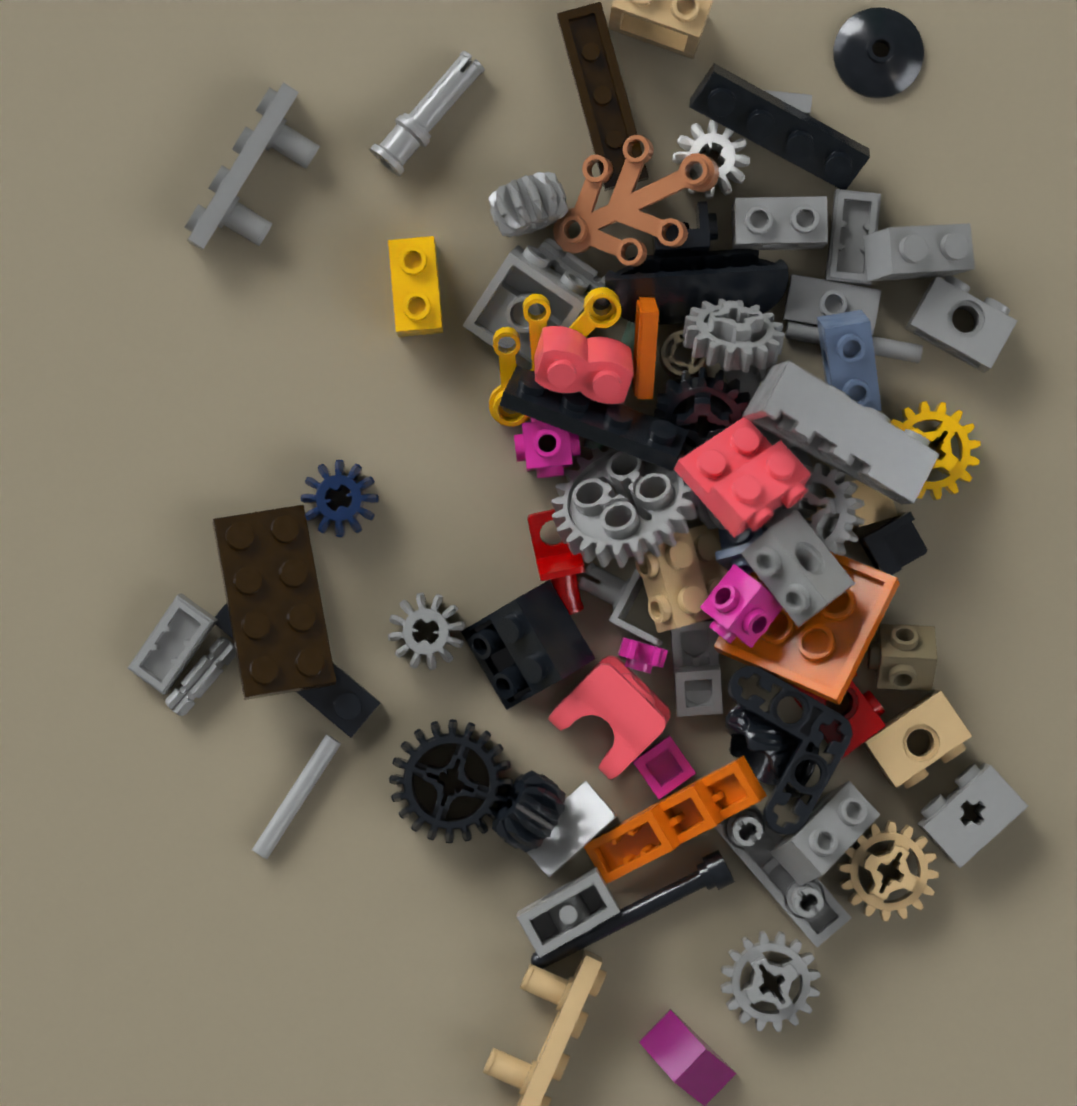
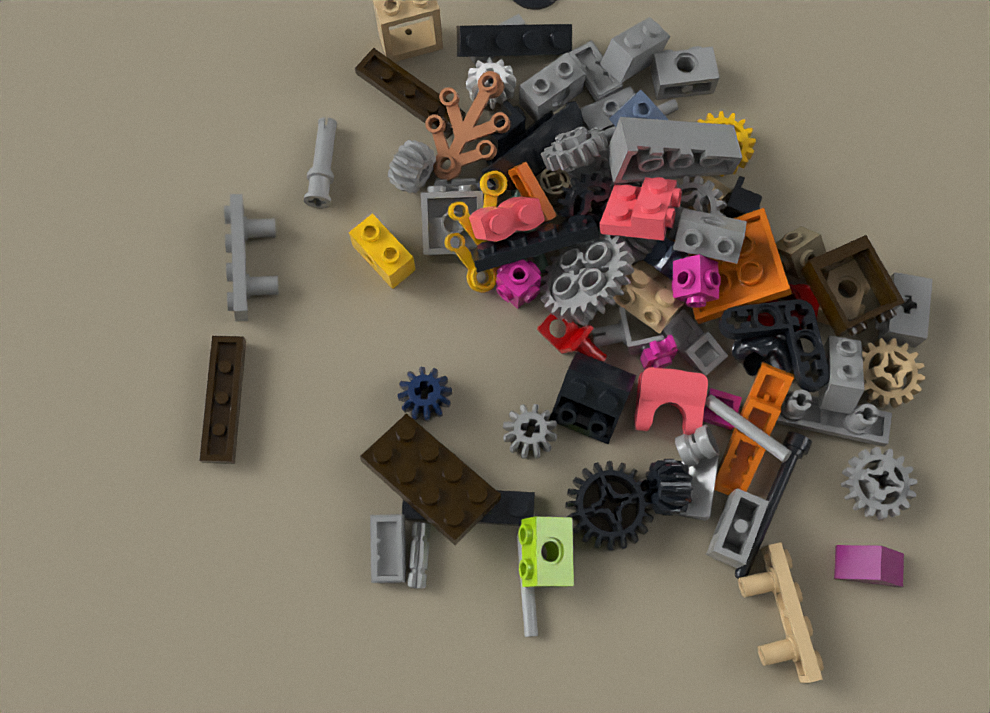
camera: 35 degrees left, 15 degrees down
(107, 331) = (223, 400): none -> dark brown plate
(340, 805) = (557, 537): none -> lime brick
(596, 791) = (697, 446): none -> light grey wheel
(664, 815) = (748, 428): none -> light grey bar
(924, 803) = (875, 274): none -> dark brown window

